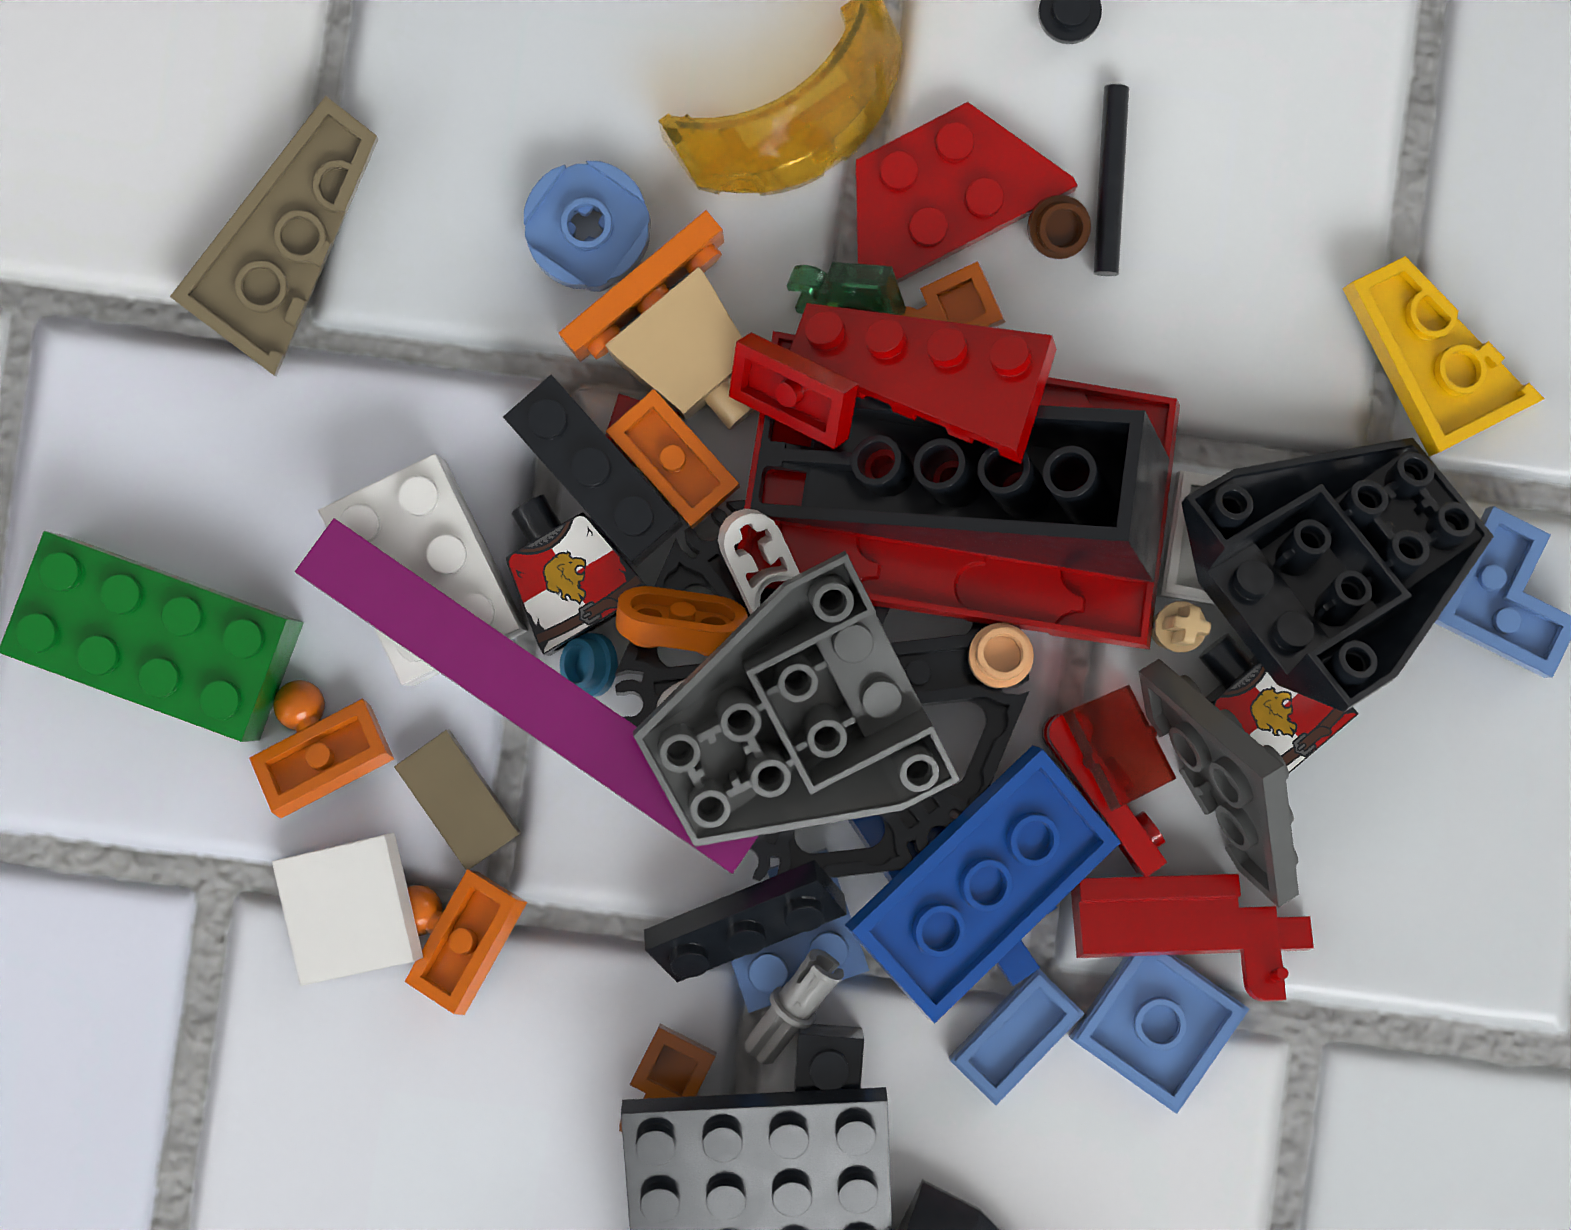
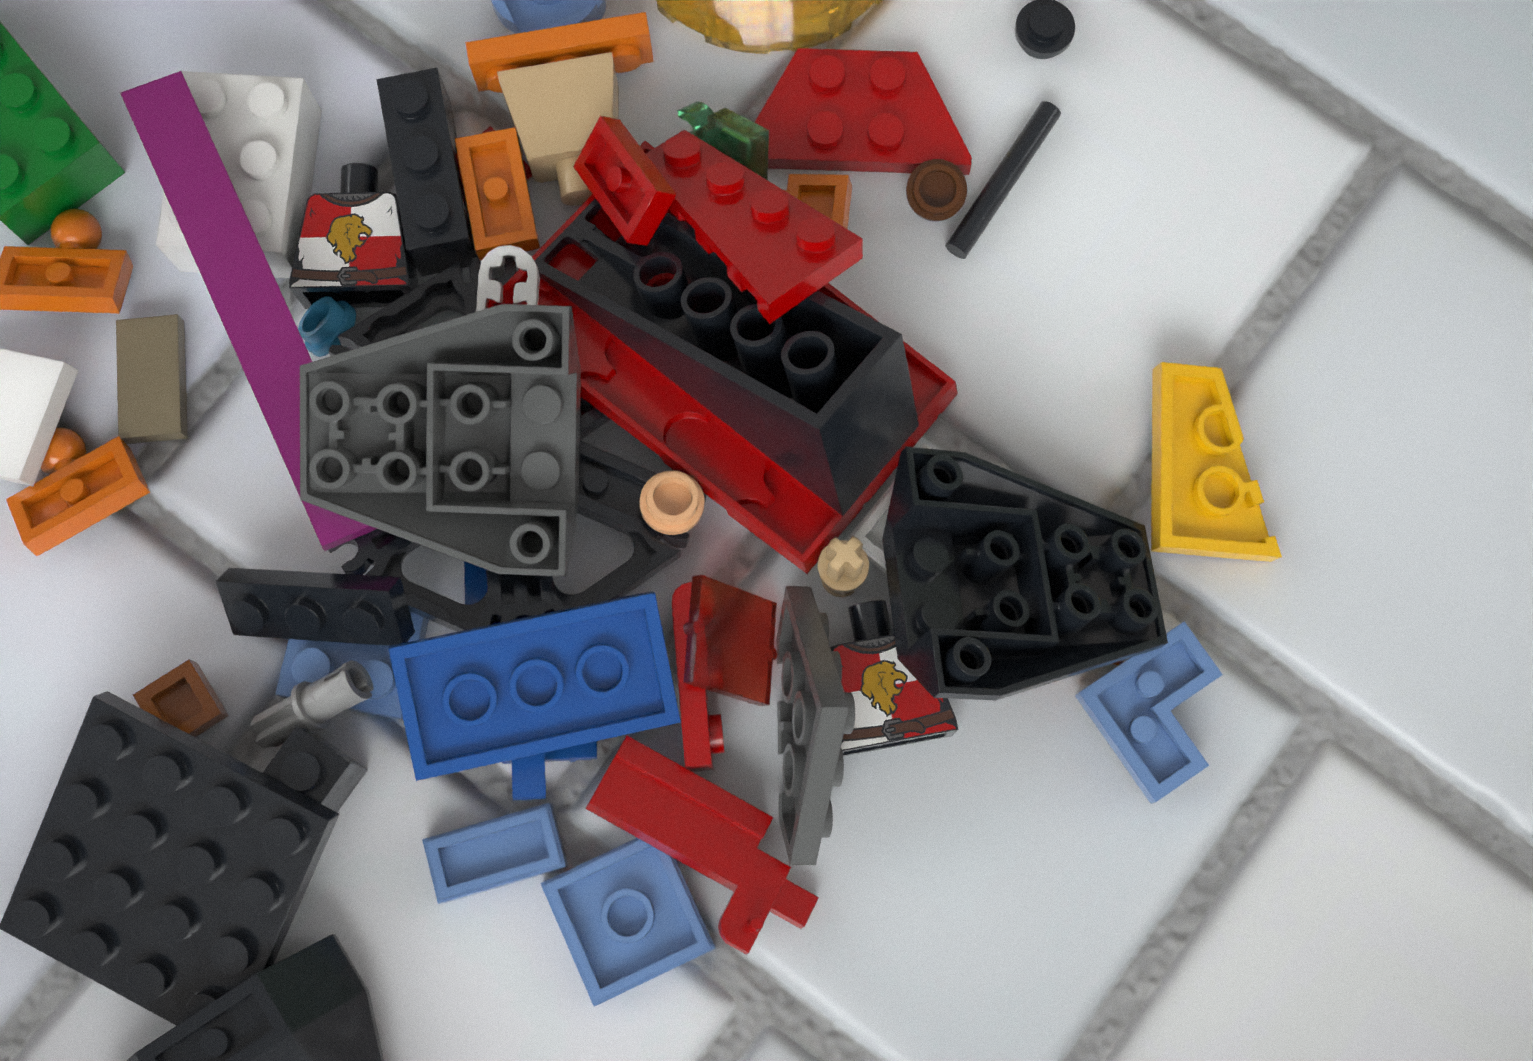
camera: 30 degrees right, 10 degrees down
(677, 618) = (399, 303): orange plate -> none

